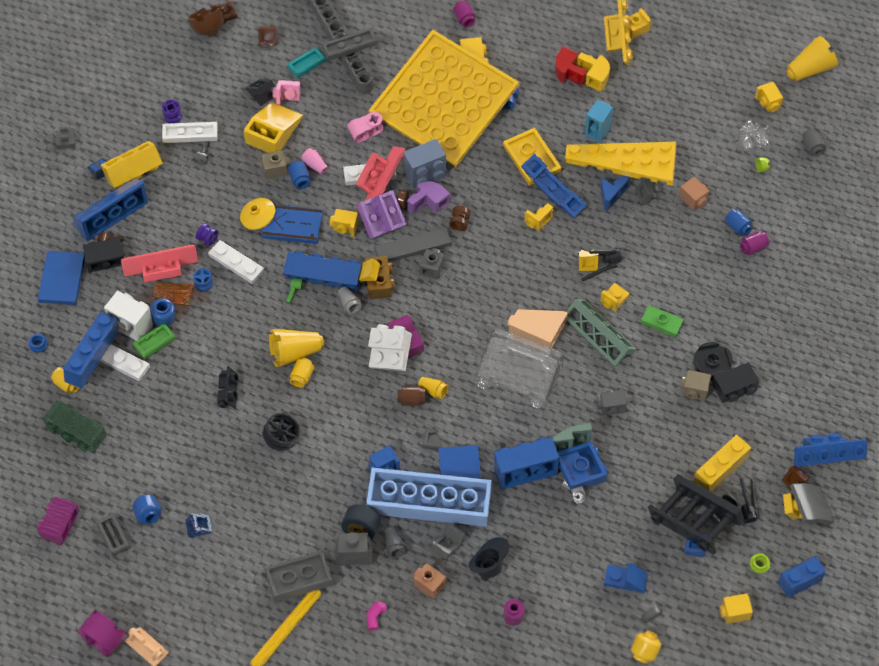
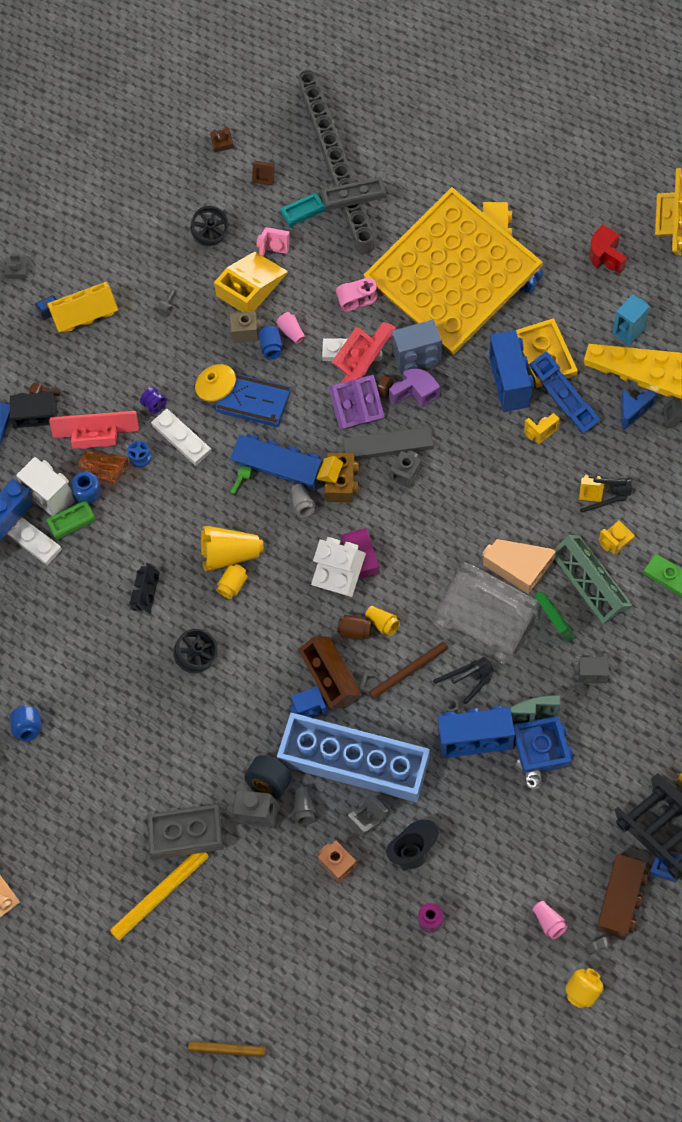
camera: 15 degrees right, 5 degrees up
(111, 209) = (50, 357): blue slope -> none
(171, 111) = (139, 250): dark purple wheel -> none
(190, 132) = (156, 276): white plate -> none
(198, 525) = (82, 750): clear blue slope -> none
(207, 21) = (197, 148): reddish brown cylinder -> none
(229, 84) = (209, 225): none -> black wheel
(261, 91) = (245, 237): black slope -> none
(344, 221) = (313, 405): yellow brick -> none
(373, 613) = (264, 890): dark pink arm -> none
(397, 433) = (329, 672): none -> reddish brown brick
(460, 217) = (447, 419): reddish brown wheel -> none
(460, 461) = (398, 719): blue slope -> none
(461, 424) = (408, 670): none -> reddish brown bar
(464, 13) = (494, 172): magenta brick -> none
(506, 173) = (510, 370): none -> blue brick
(519, 416) = (477, 669): none -> black plant
(576, 364) = (555, 616): none -> green tile
(597, 70) = (639, 257): yellow brick -> none
(611, 602) = (550, 921): none -> bright pink cone
(626, 578) = (574, 894): blue slope -> none
(665, 574) = (622, 897): none -> reddish brown brick

